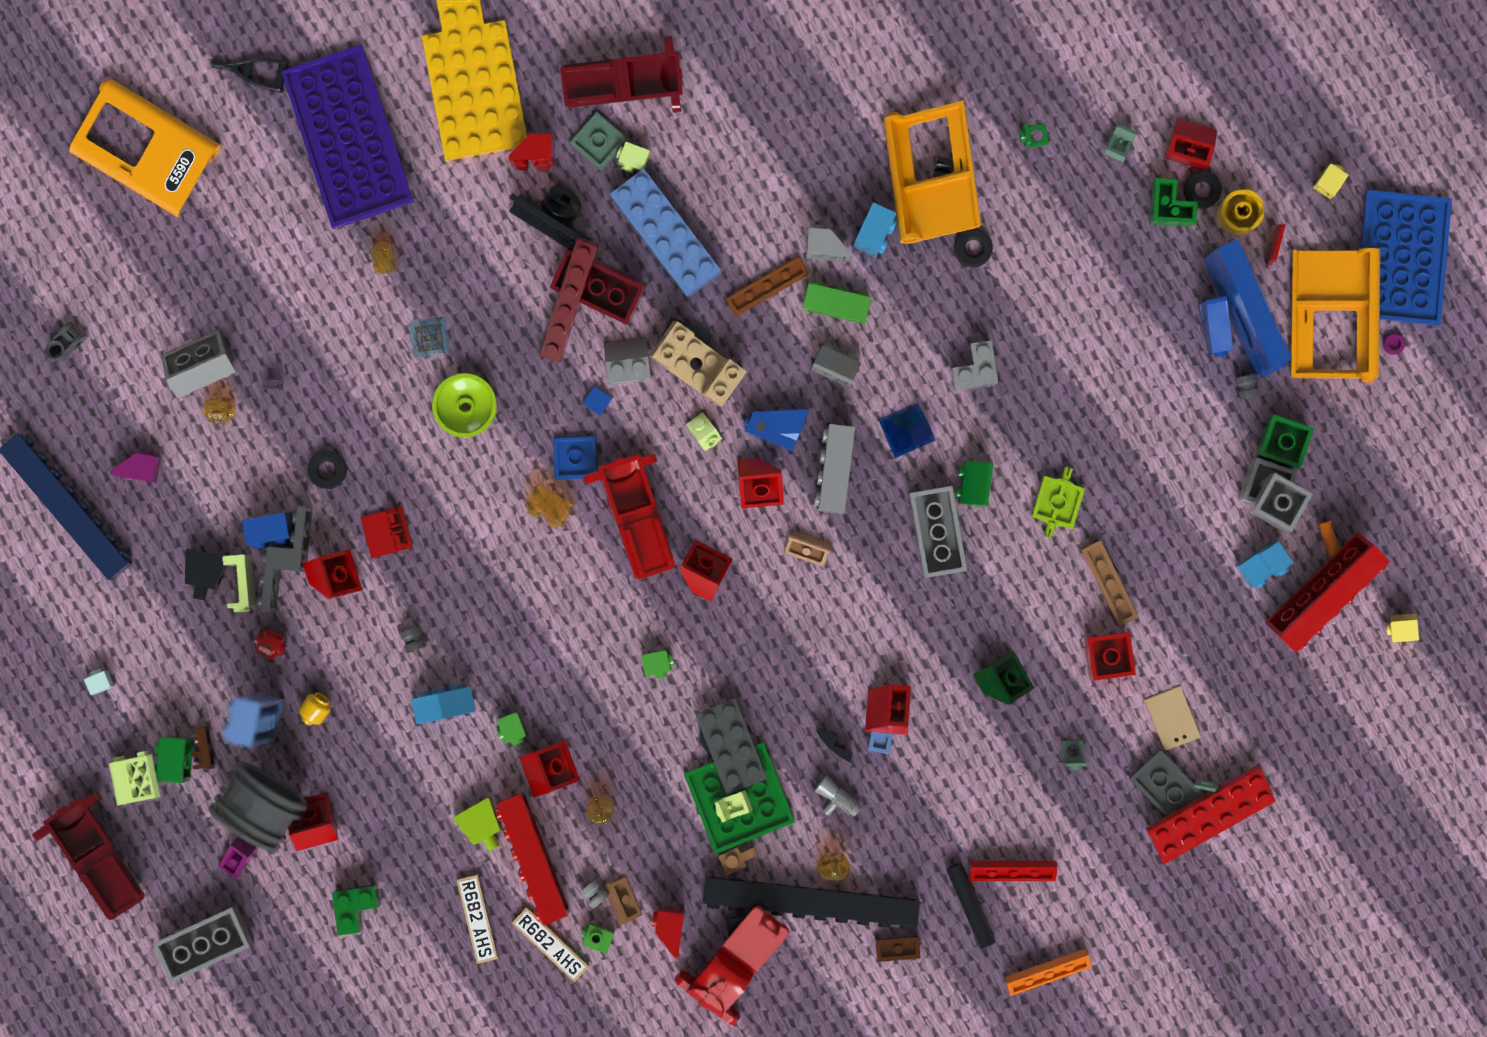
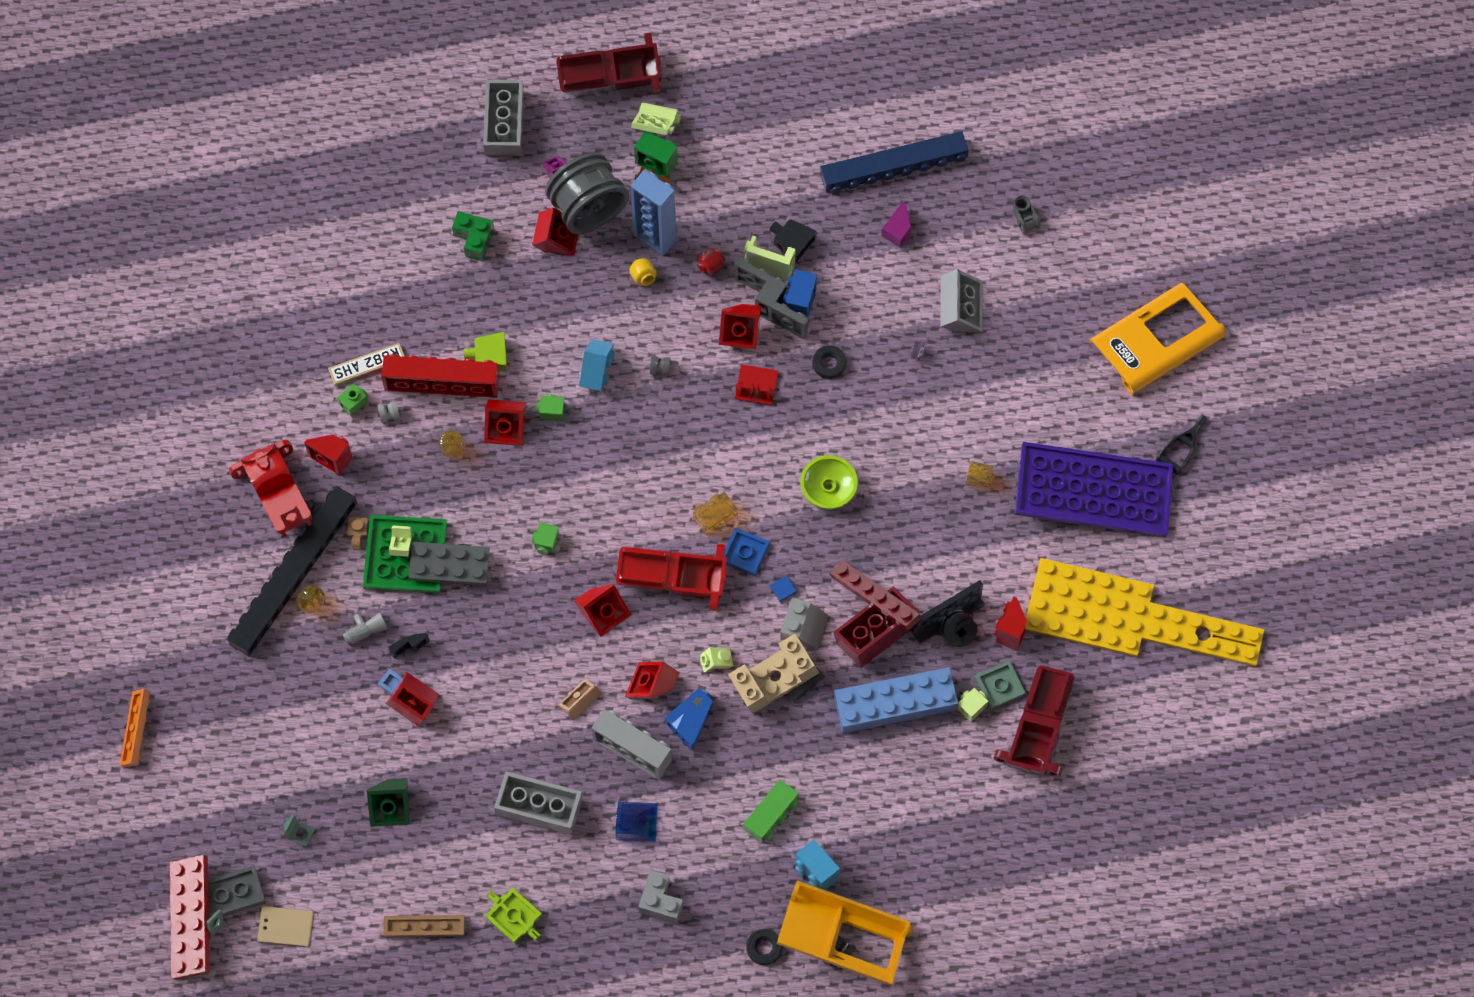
camera: 120 degrees right, 20 degrees down
(98, 681) = (744, 129): light aqua plate -> none
(218, 409) = (916, 302): clear yellow head -> none
(429, 338) = (898, 484): piece -> none
(477, 919) = (416, 320): tile -> none
(622, 900) = (372, 432): medium nougat slope -> none
(767, 286) = (813, 764): dark orange tile -> none
(825, 245) = (824, 820): light grey slope -> none
(836, 365) = (717, 784): light grey slope -> none
(898, 948) = (218, 621): reddish brown plate -> none
(970, 905) = (221, 692): black piece -> none
(975, 483) = (562, 852): green slope -> none
(1013, 870) = (230, 739): red plate -> none
(1110, 656) = (363, 894): red brick -> none

